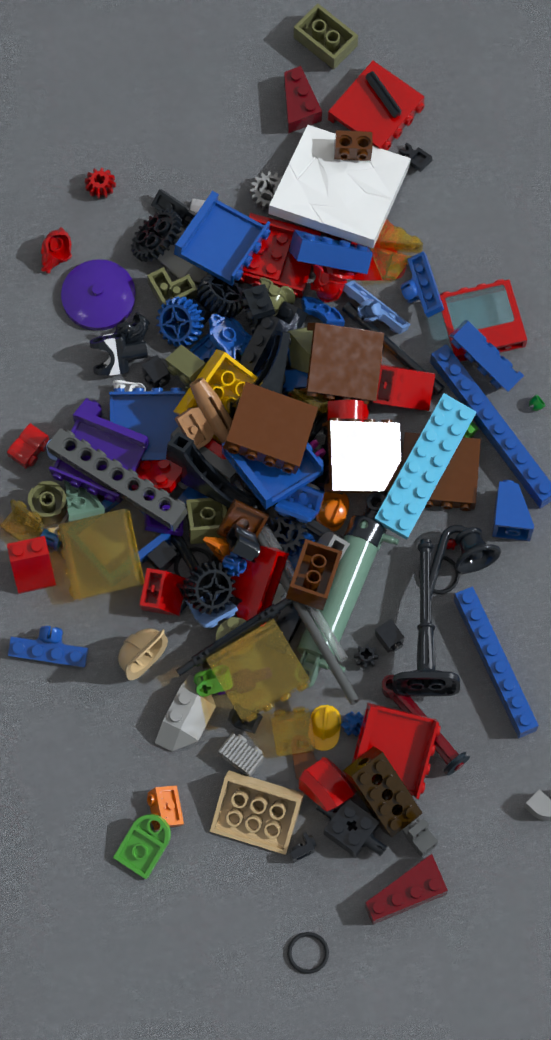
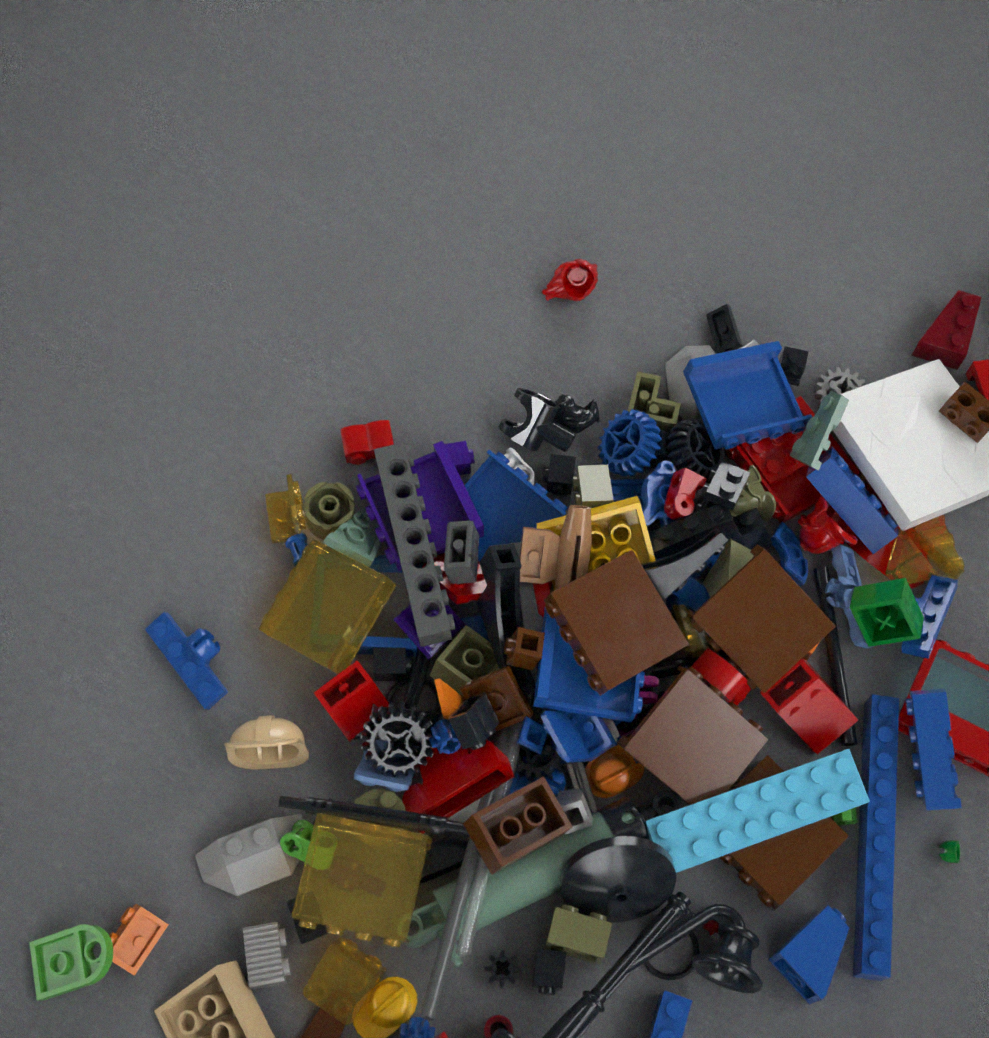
camera: 40 degrees right, 5 degrees down
(31, 564) = (252, 556): red slope -> none
(93, 185) = (674, 256): red gear -> none
(98, 295) = (575, 357): dark purple dish -> none
(150, 461) = (461, 552): none -> dark grey brick
(165, 226) = (697, 337): black gear -> none
(229, 195) = (793, 364): none -> black brick
(234, 482) = (524, 648): none -> reddish brown brick
(237, 326) = (682, 492): none -> red leg
(278, 525) = (532, 735): none -> blue slope
(281, 229) = (815, 437): none -> sand green wing
(386, 559) = (618, 878): none -> black dish
(389, 604) = (579, 934): none -> olive brick
(402, 302) = (887, 612): none -> green brick

